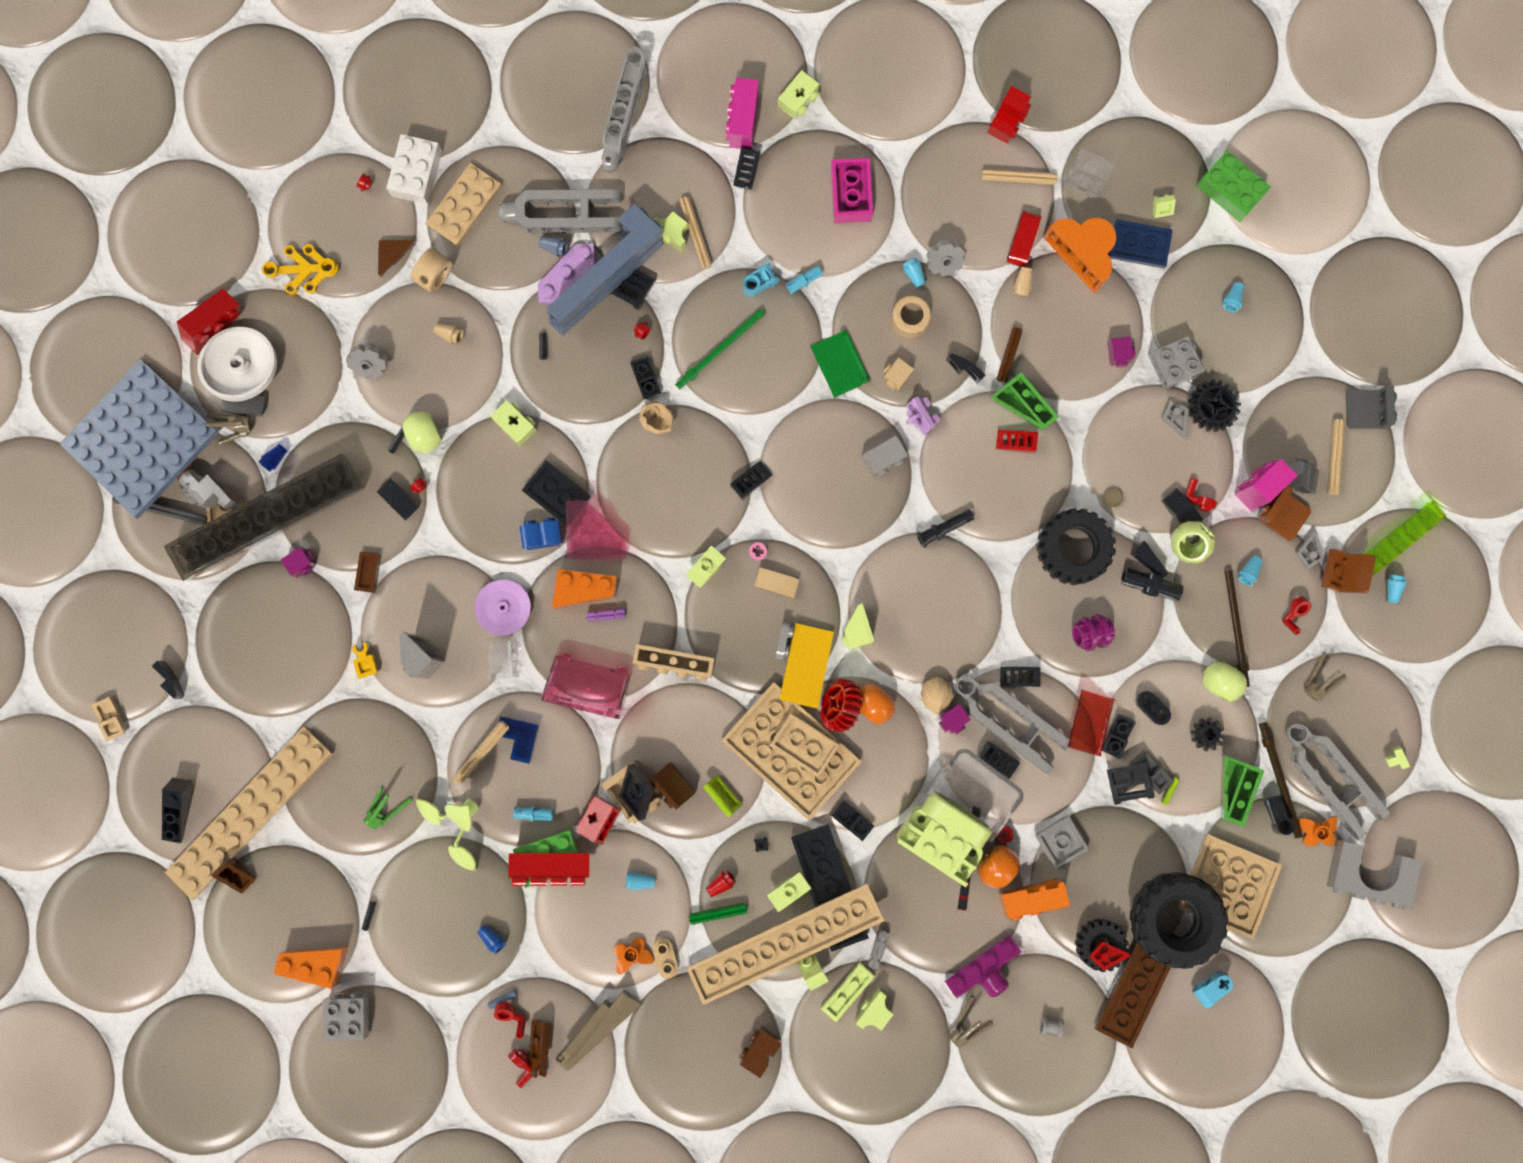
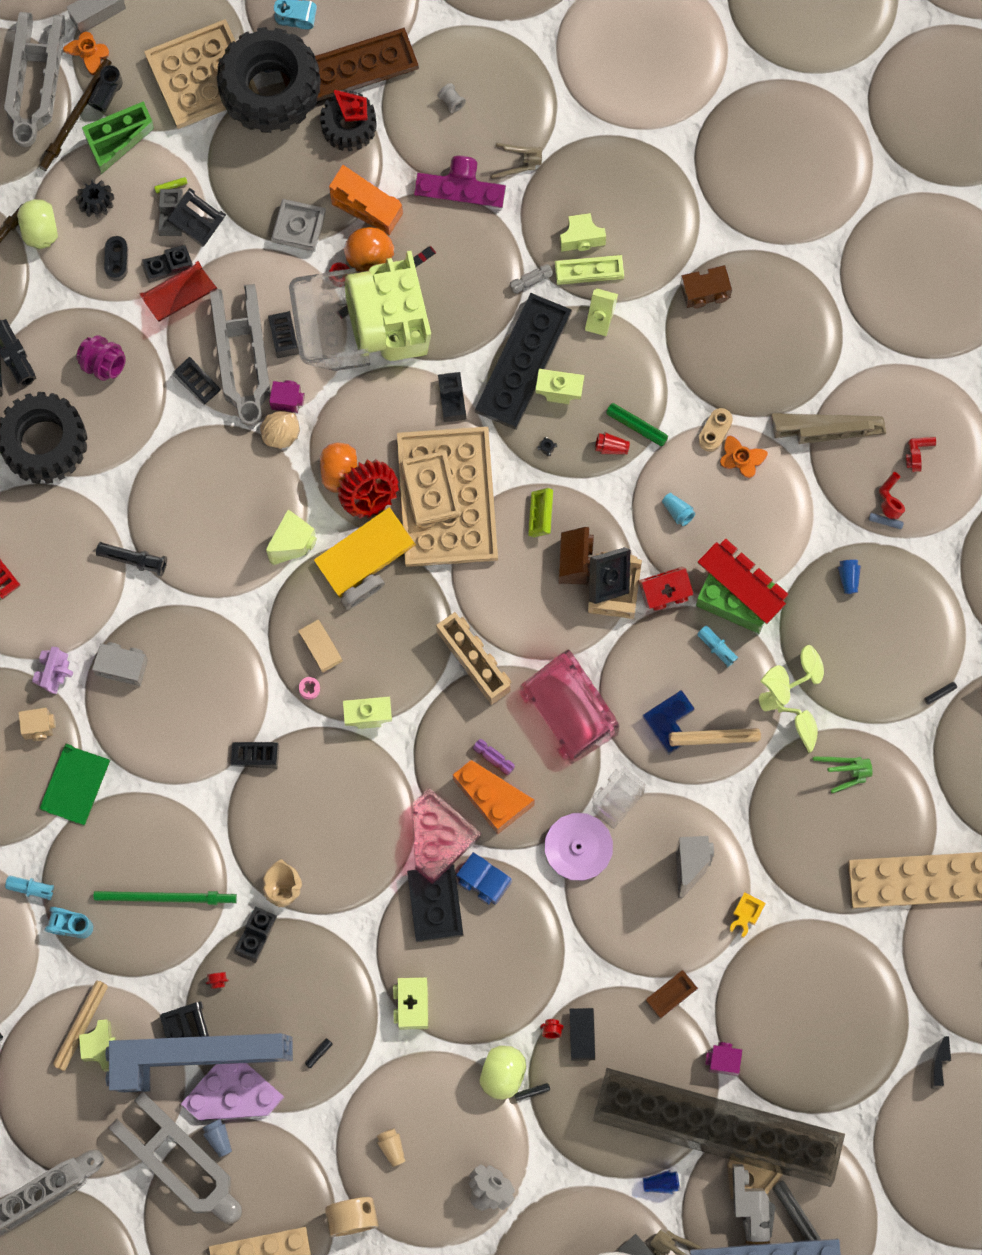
camera: 135 degrees left, 10 degrees down
(539, 1047) = (888, 454): reddish brown plate -> none
(785, 943) = (603, 348): tan plate -> none

